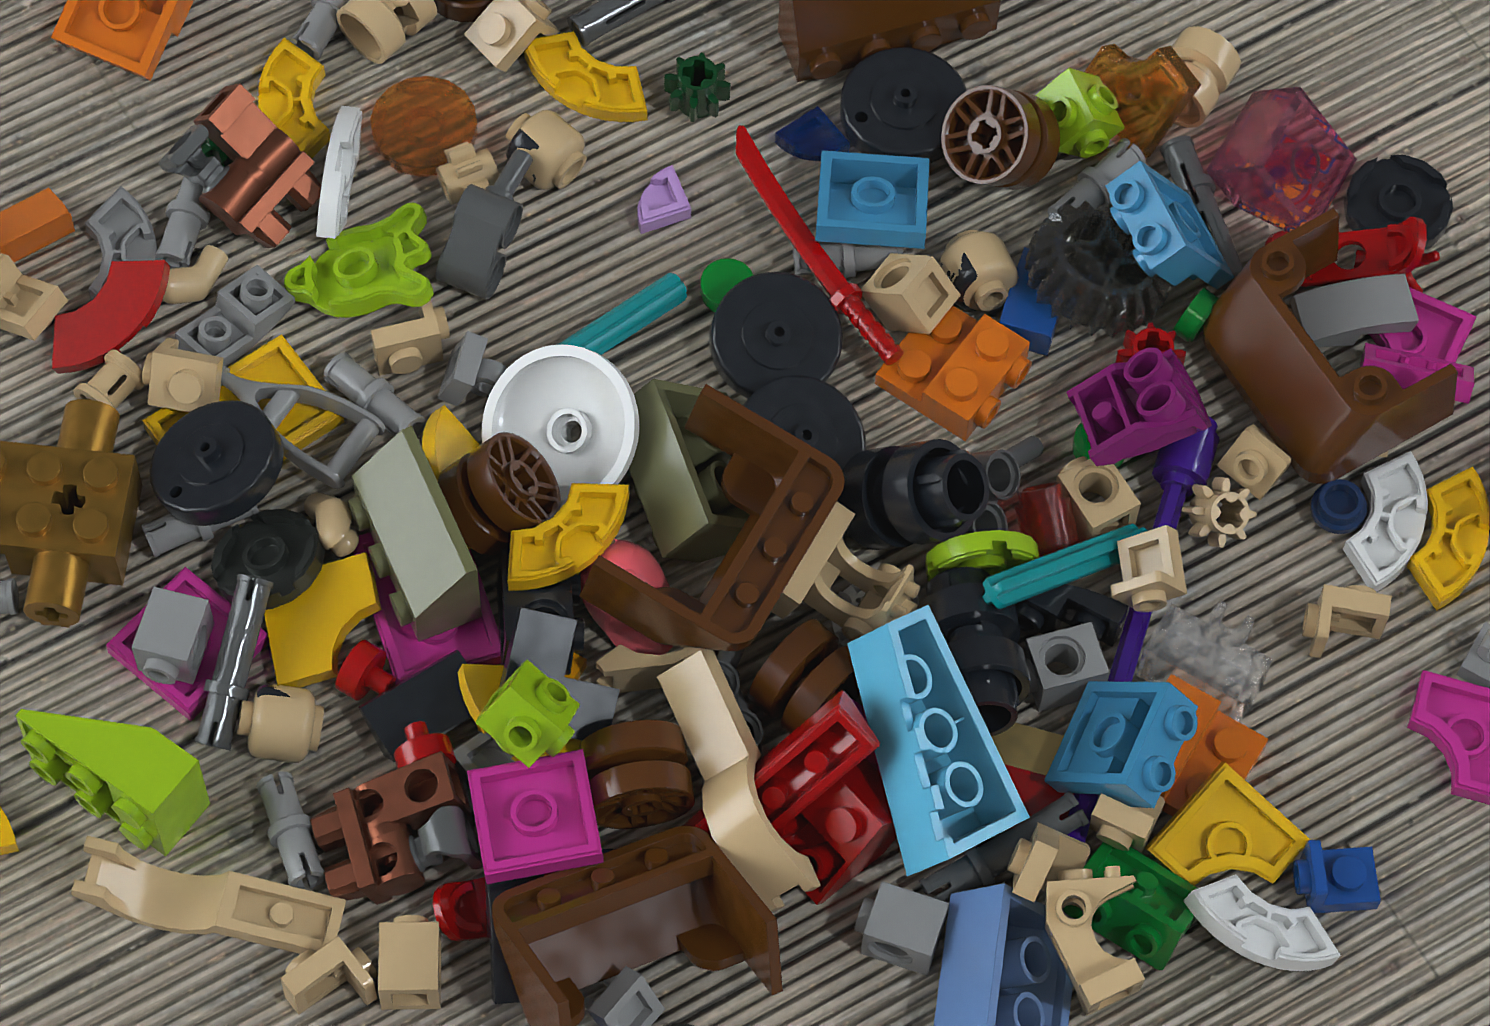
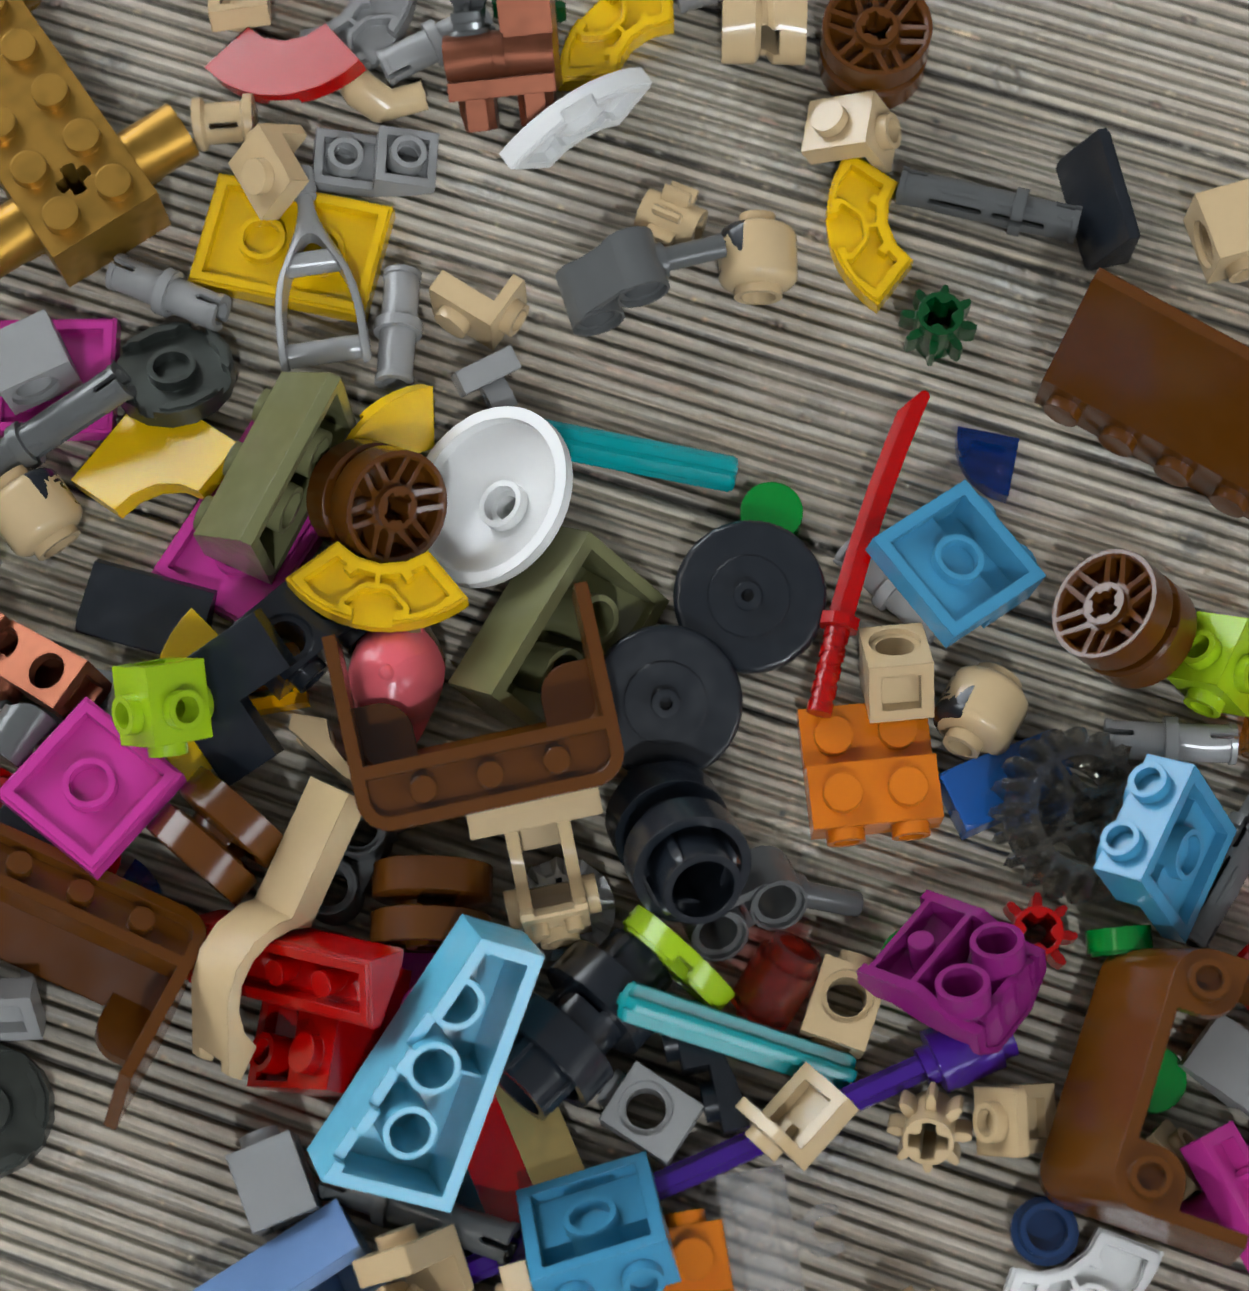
camera: 55 degrees right, 10 degrees up
(216, 463) = (210, 259): black wheel -> none
(332, 523) = (240, 398): tan arm -> none
(364, 671) = (137, 535): red tile -> none
(367, 268) = (510, 217): lime tile -> none
(420, 121) = (695, 141): clear orange tile -> none
(422, 744) = (94, 643): red tile -> none
(662, 202) = (804, 392): lavender tile -> none
(899, 102) = (1085, 500): black wheel -> none

